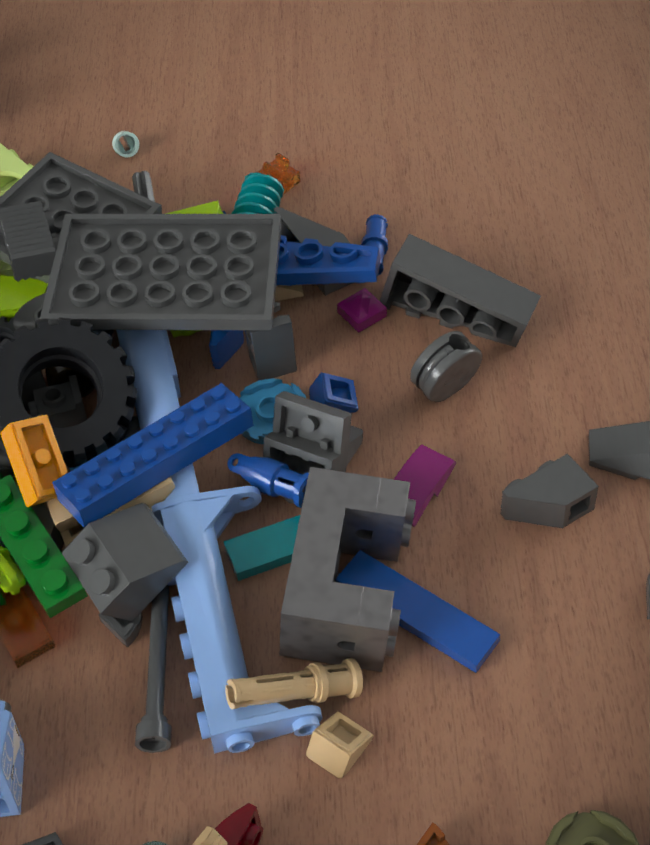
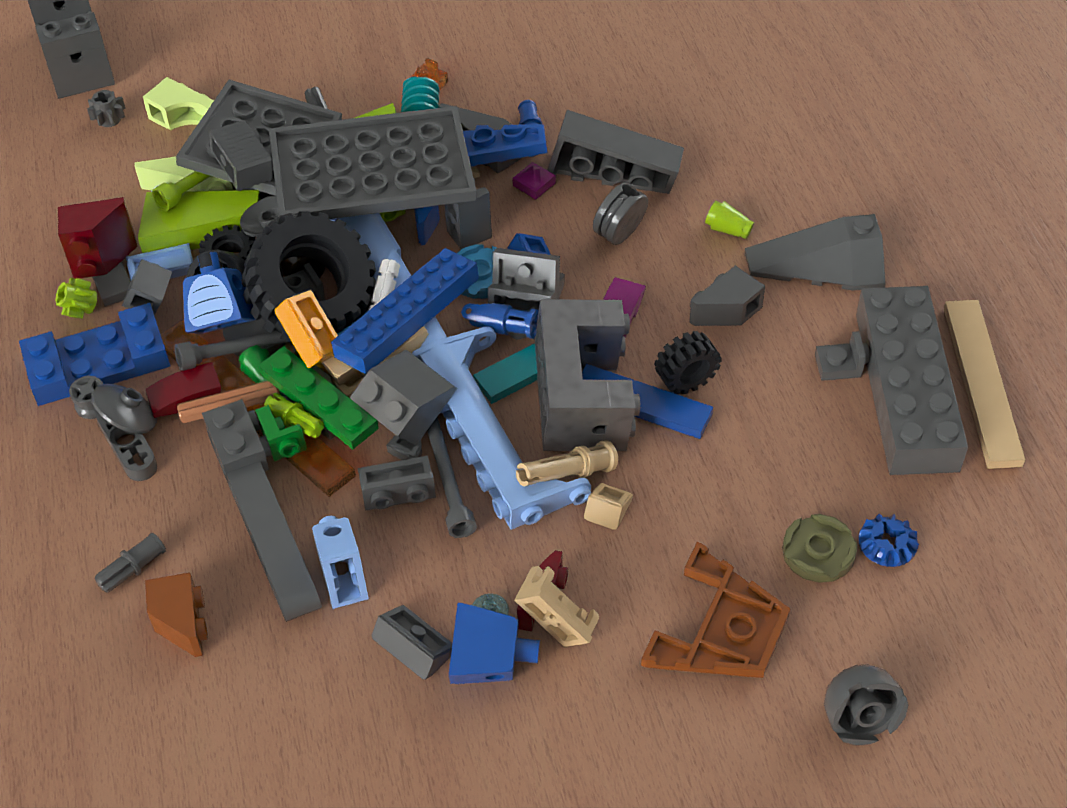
camera: 15 degrees left, 0 degrees up
(93, 668) = (397, 483): none -> dark grey bracket
(131, 141) = (285, 64): light aqua hinge -> none
(145, 414) = (385, 283): none -> white axle
(479, 572) = (687, 362): none -> black tyre
(576, 392) = (728, 220): none -> lime cone

